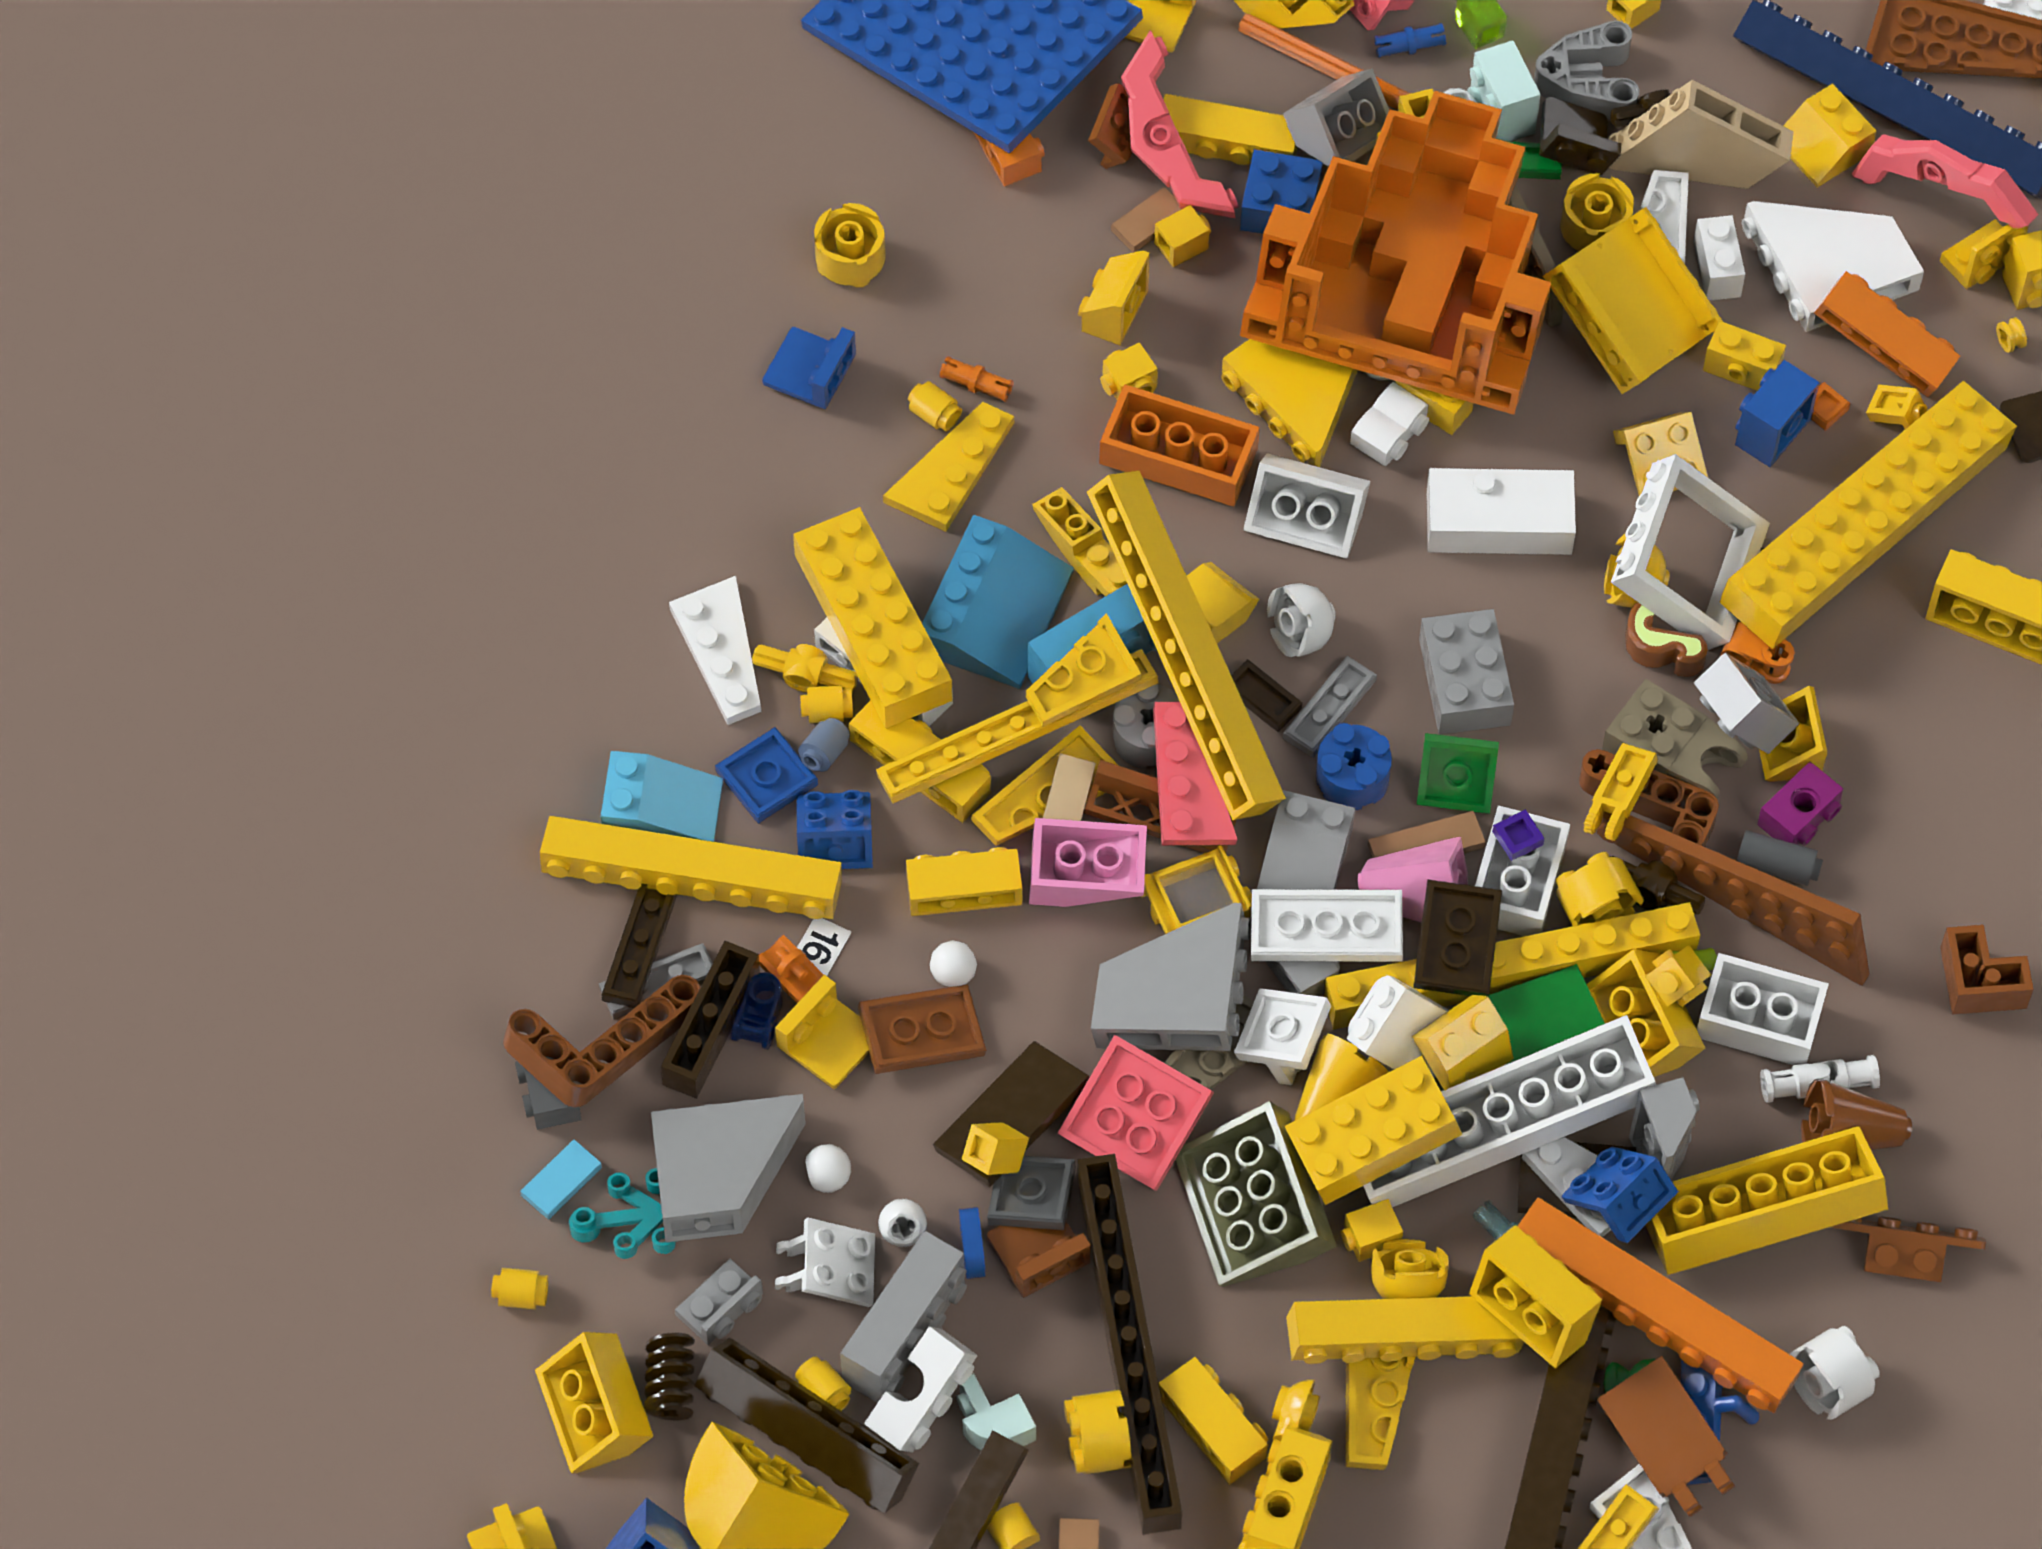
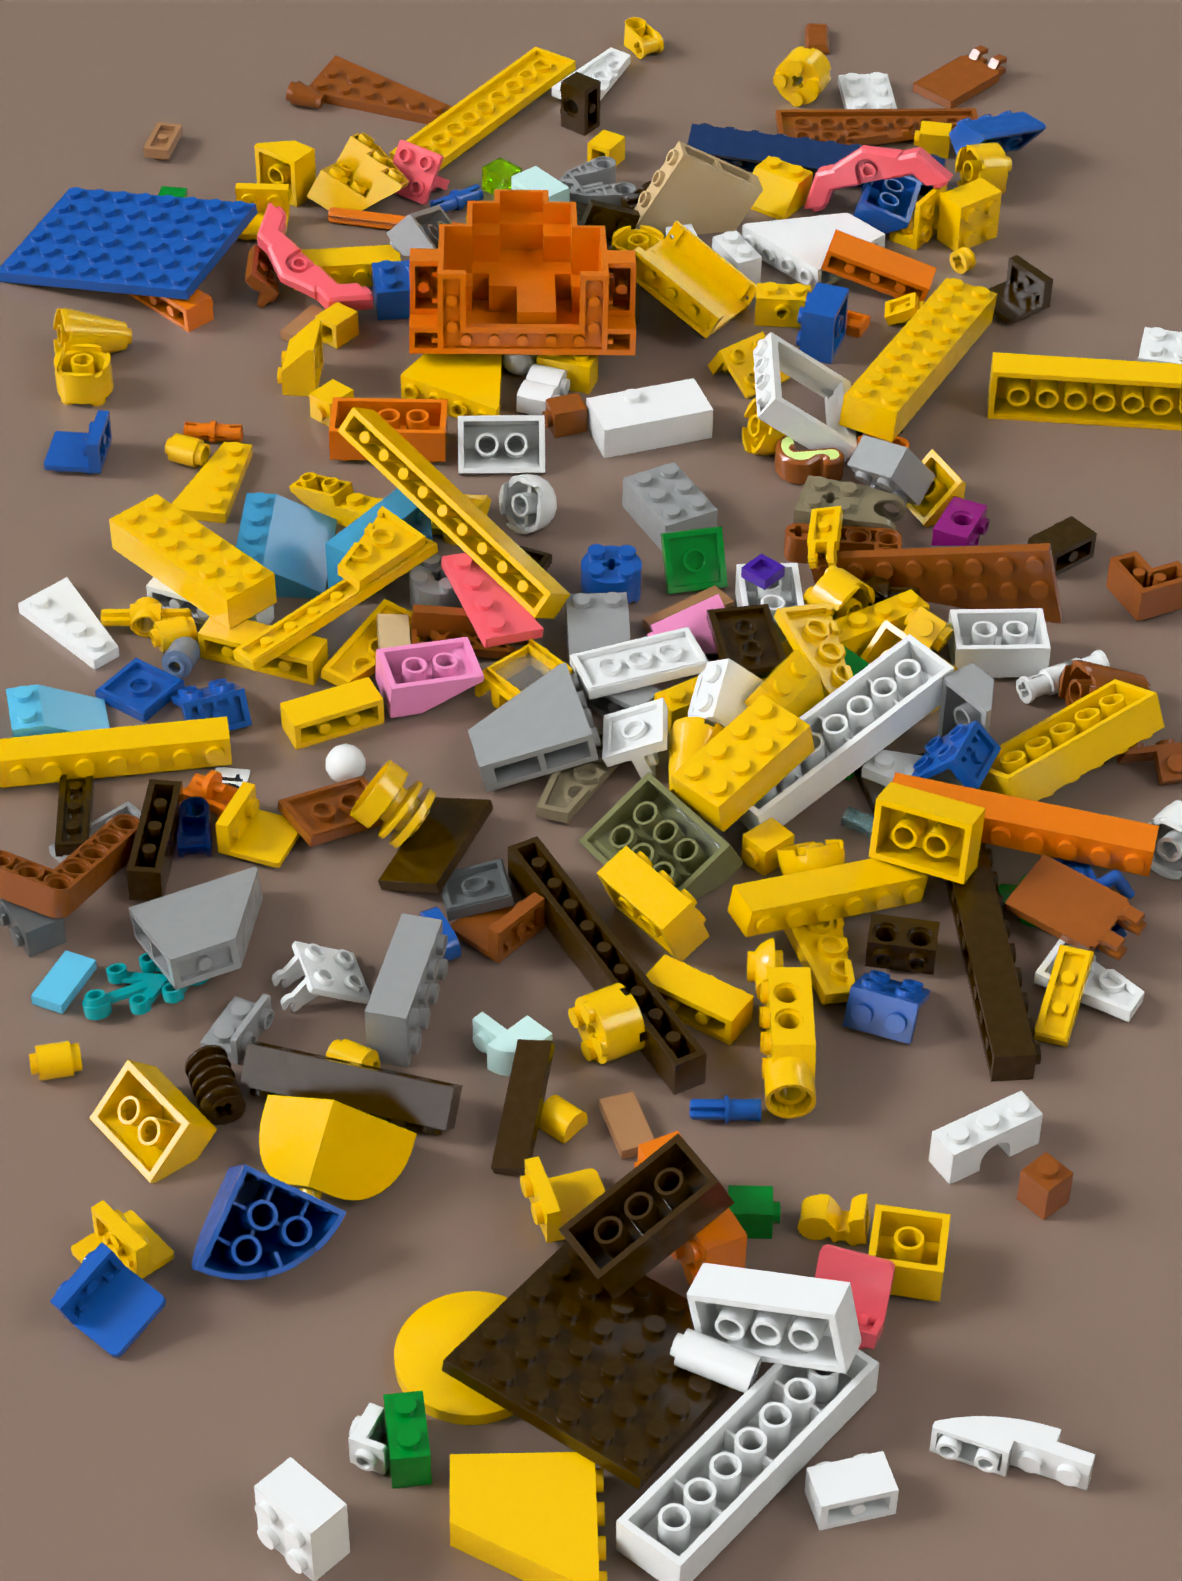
camera: 20 degrees left, 20 degrees down
(828, 1168) = (296, 915): white piece -> none
(875, 176) = (86, 328): none -> yellow cone
(902, 1222) = (374, 933): white piece -> none
(944, 1366) = (456, 1002): white arch -> none
(976, 1056) = (393, 804): none -> yellow wheel
(995, 1148) = (434, 859): yellow panel -> none
(1136, 1112) = (540, 804): coral plate -> none
(1208, 1285) = (654, 903): none -> yellow brick
(1329, 706) = (567, 562): light grey tile -> none
(1401, 475) = (565, 415): none -> dark orange brick
(1413, 1490) = (885, 1006): none -> blue bracket
(1470, 1406) = (902, 944): none -> dark brown brick
(1534, 966) = (815, 637): none -> yellow wing
(1909, 872) = (1070, 543): none -> dark brown brick
(1943, 219) = (888, 203): none -> blue slope

